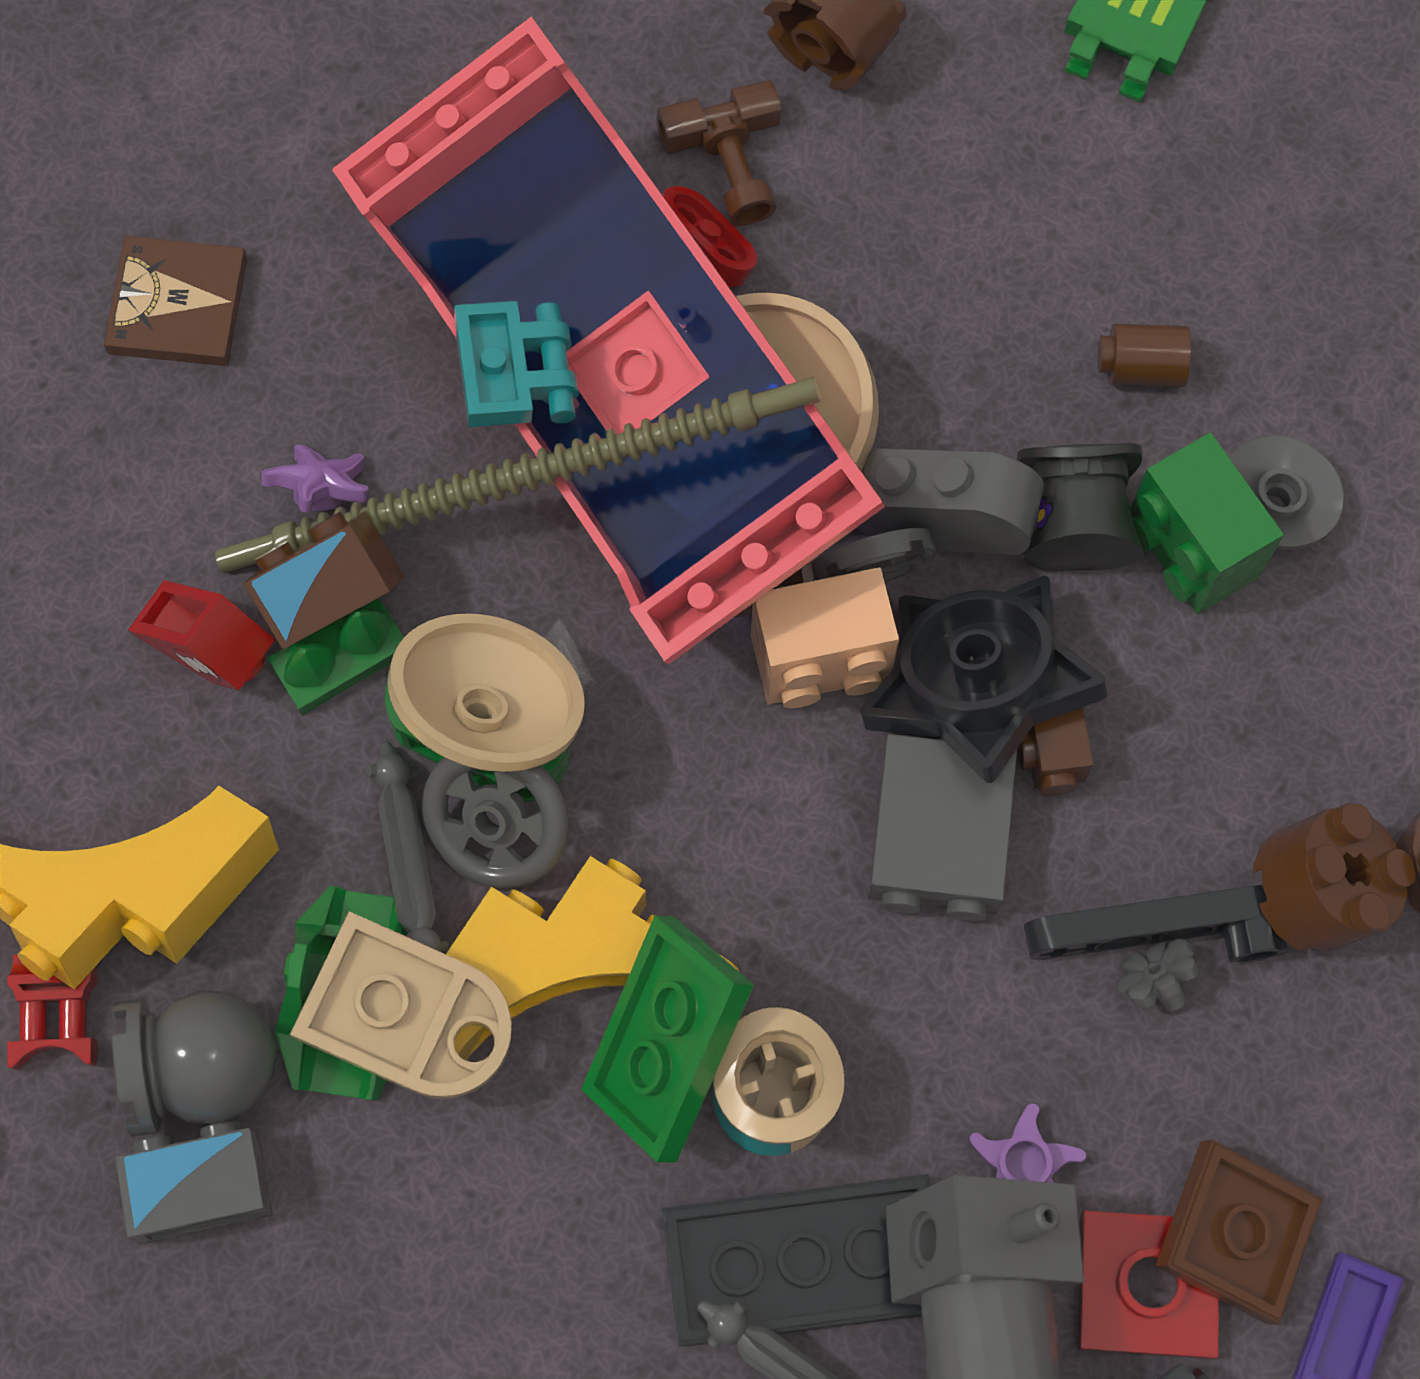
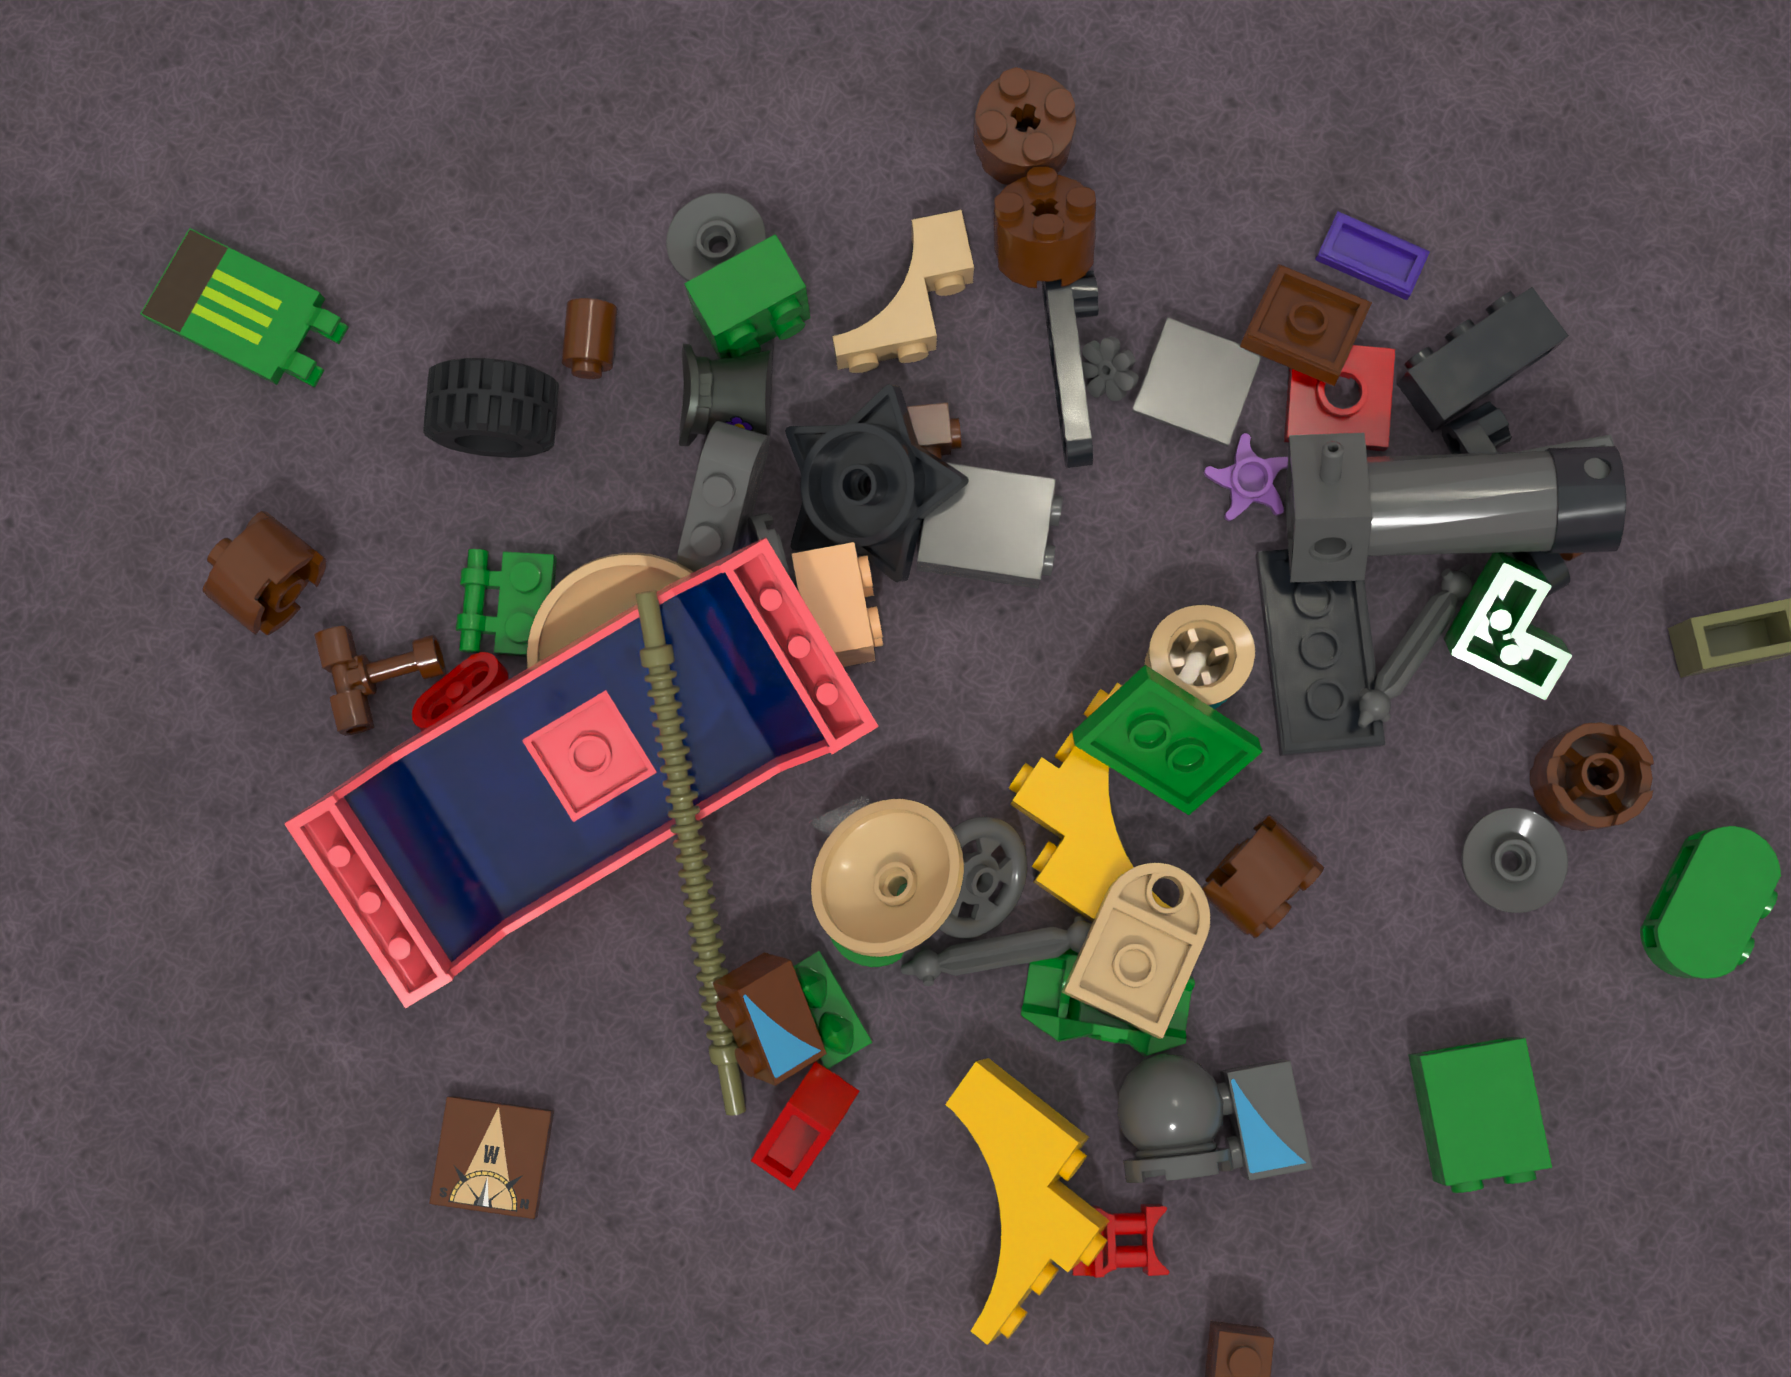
camera: 85 degrees left, 10 degrees up
(318, 481) = (671, 1027): medium lavender animal -> none
(495, 367) = (592, 868): teal plate -> none
(498, 1166) = (1261, 877): none -> reddish brown brick
(843, 294) = (523, 587): none -> green plate
(1044, 239) = (491, 407): none -> black tyre
(1148, 1087) = (1197, 382): none -> piece
(1192, 721) = (906, 325): none -> tan arch

